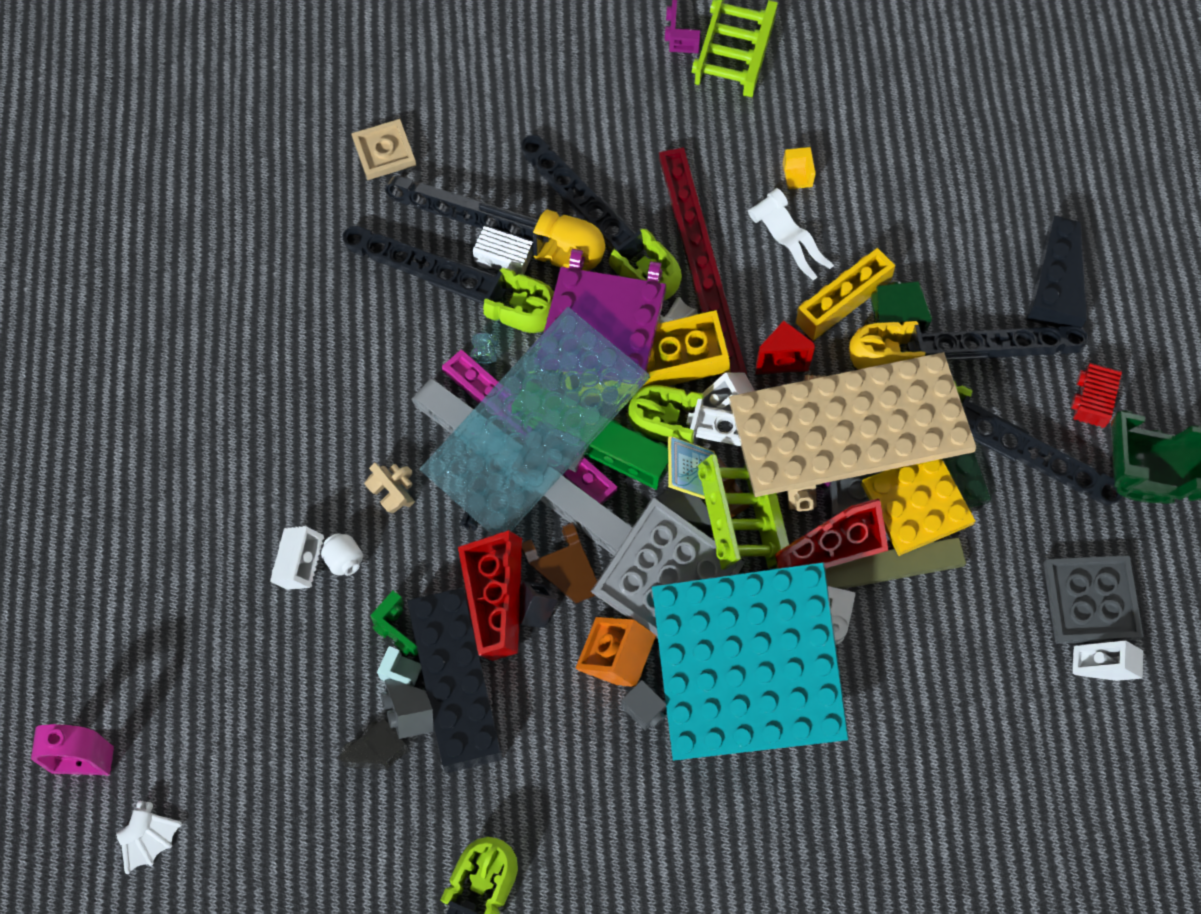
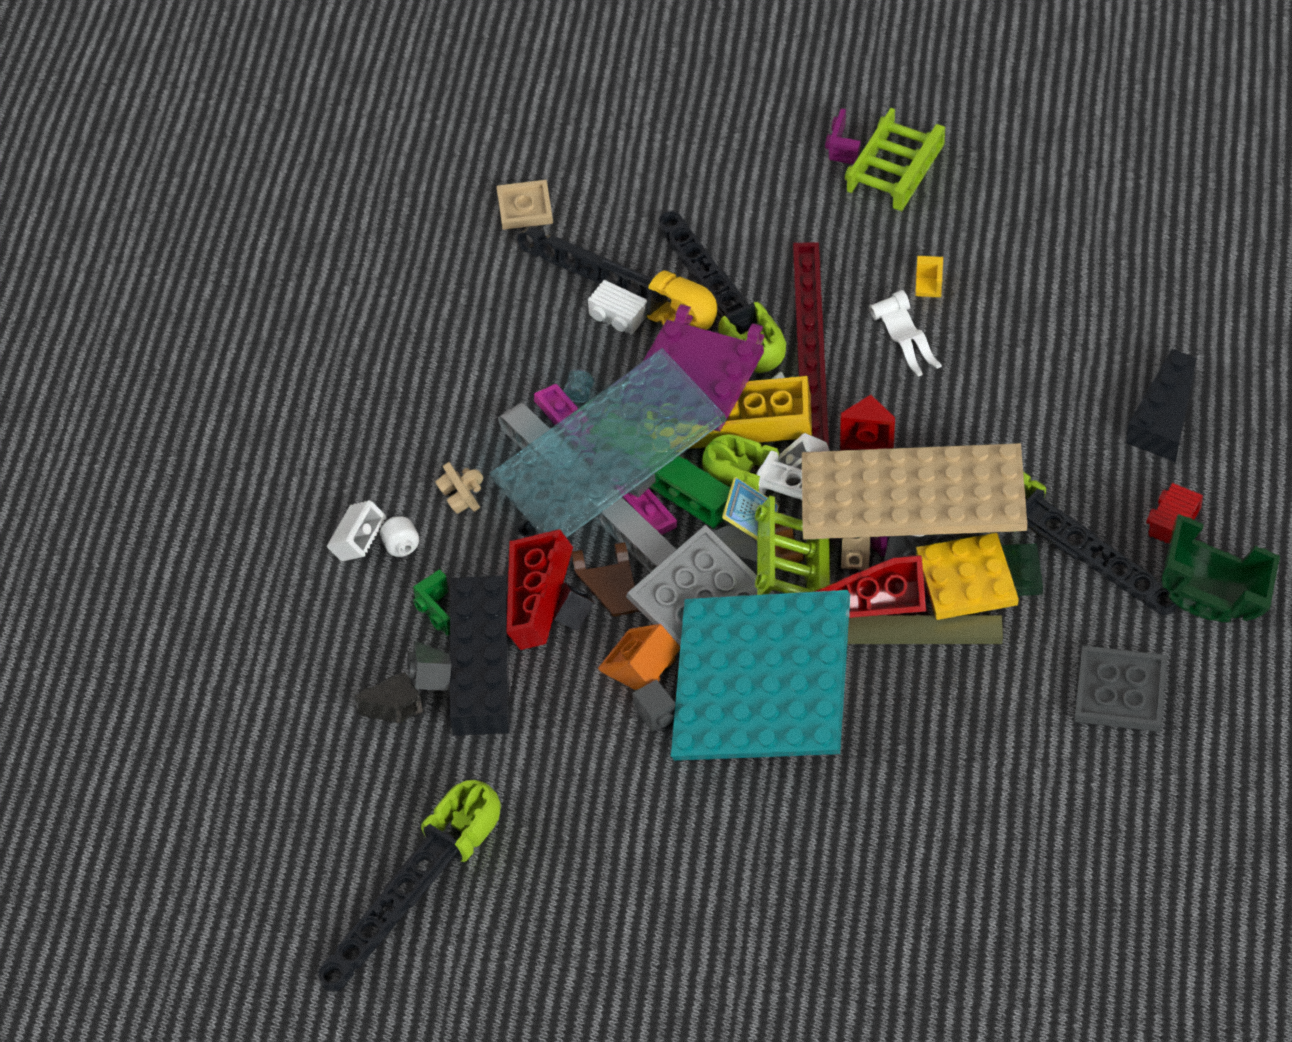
camera: 15 degrees right, 15 degrees down
(63, 746) = (101, 662): dark pink window -> none
(145, 836) = (162, 738): white arm -> none
(399, 668) = (425, 633): light aqua panel -> none
(488, 290) = (596, 337): black piece -> none
(841, 609) = (867, 655): white leg -> none
(844, 294) = (944, 389): yellow brick -> none
(880, 342) = (978, 430): black piece -> none
(901, 304) = (996, 412): dark green torso -> none
(1108, 661) = (1122, 741): white slope -> none

